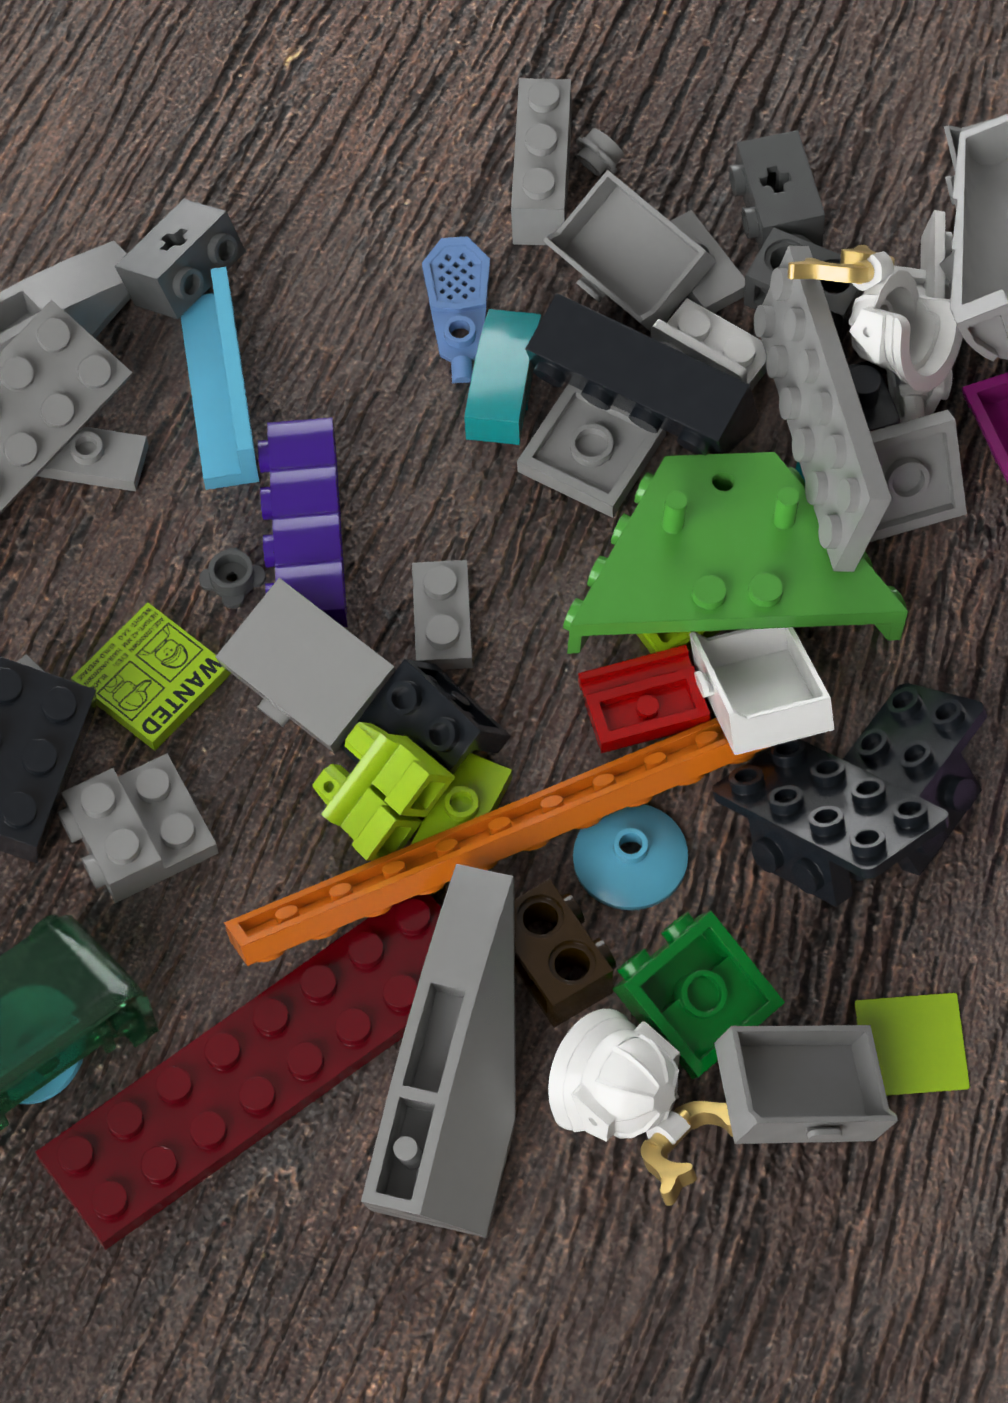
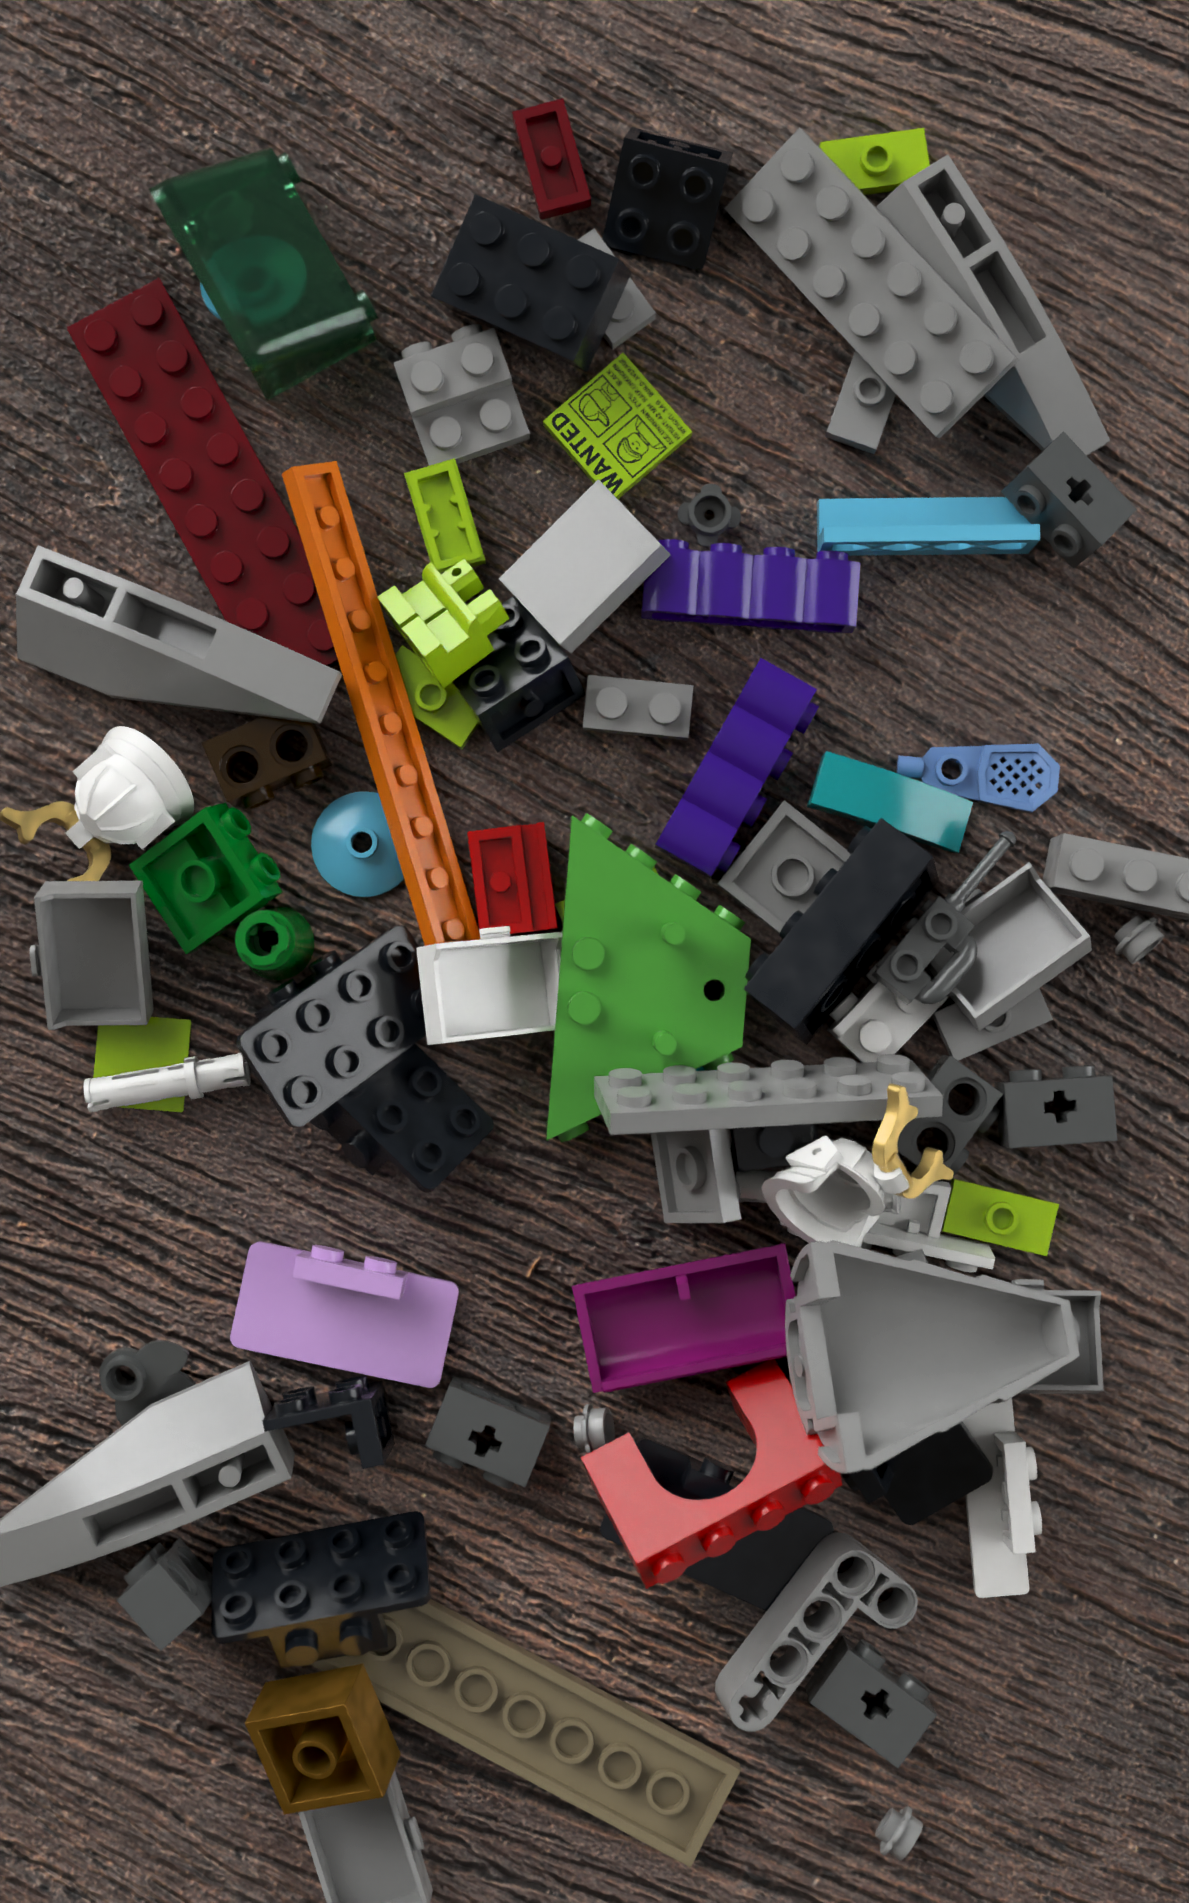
camera: 95 degrees right, 25 degrees up
(267, 821) = (444, 515): none -> lime plate
(493, 510) = (735, 769): none -> dark purple brick
(626, 301) = (937, 928): none -> dark grey piece
(758, 908) = (293, 947): none -> green plant
(894, 220) = (1000, 1217): none -> lime plate
(919, 981) = (178, 1080): none -> white pin

